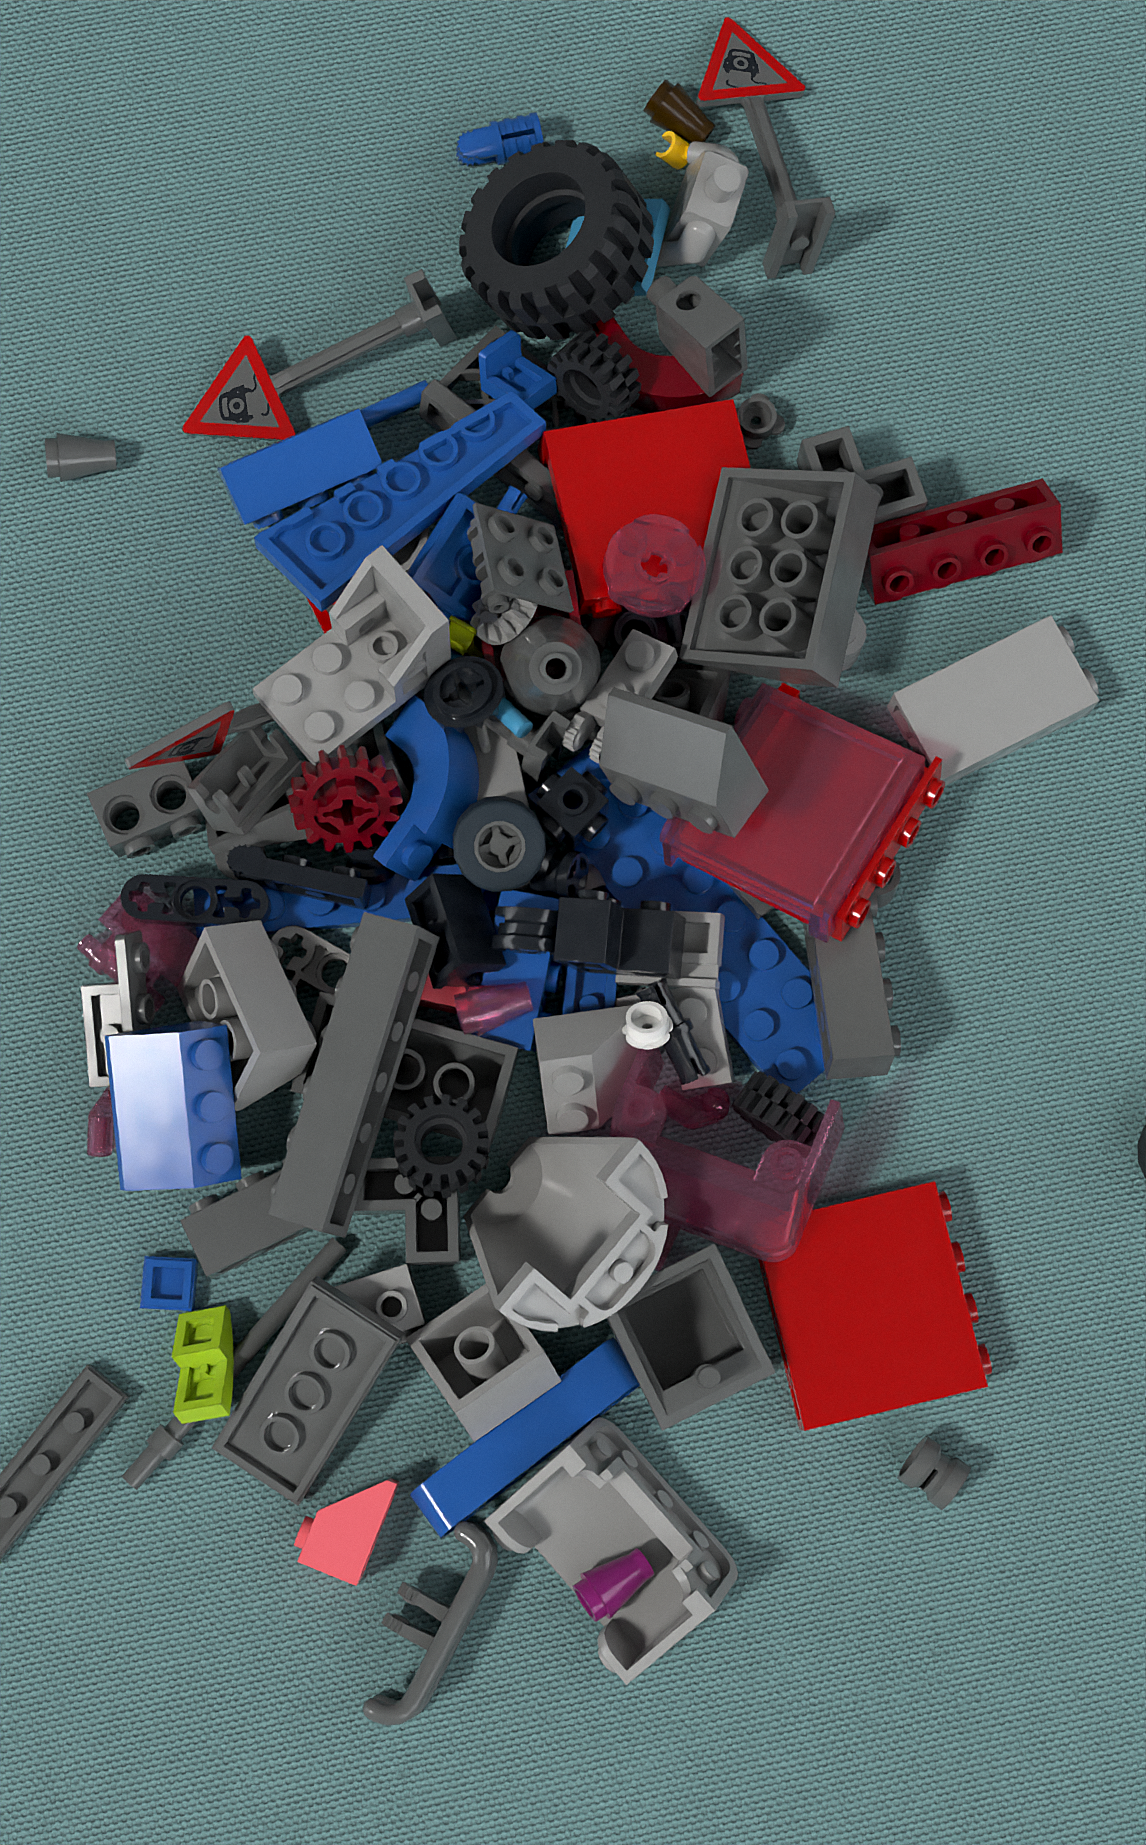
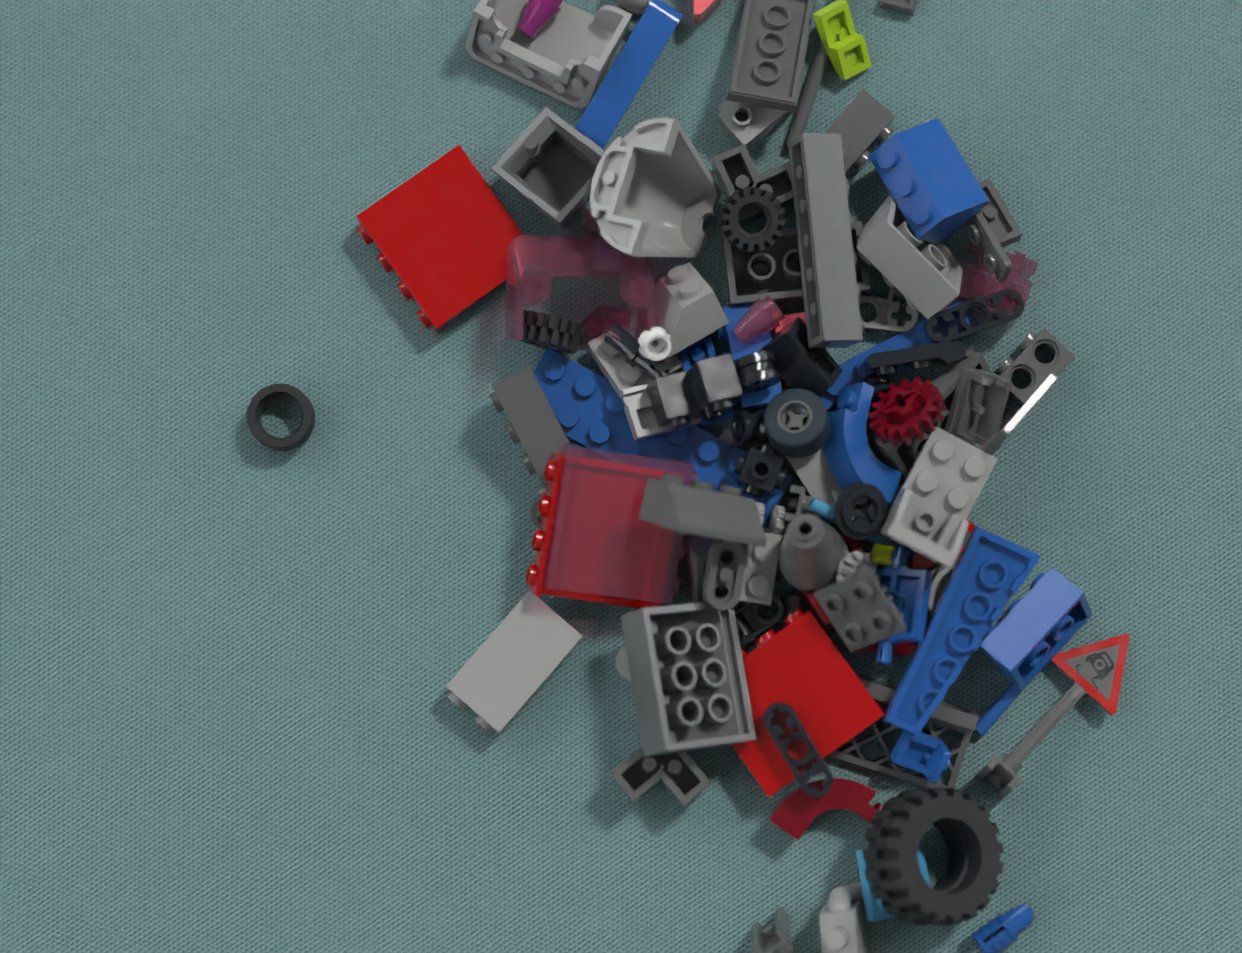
camera: 160 degrees right, 5 degrees up
(78, 456) = (1188, 585): dark grey cone -> none
(100, 1127) = (971, 155): clear pink arm -> none
(169, 1283) = (886, 81): blue tile -> none
(482, 1362) = (675, 93): light grey brick -> none
(594, 377) = (867, 771): black tyre -> none
(632, 585) = (790, 661): clear pink plate -> none
(654, 403) = (820, 767): none -> black beam
(676, 686) = (727, 574): none -> dark grey plate
(700, 331) = (803, 823): dark grey torso -> none
(770, 423) = (738, 801): dark grey plate -> none
(934, 1473) = (369, 154): dark grey wheel -> none
(962, 541) = (577, 762): dark red brick -> none

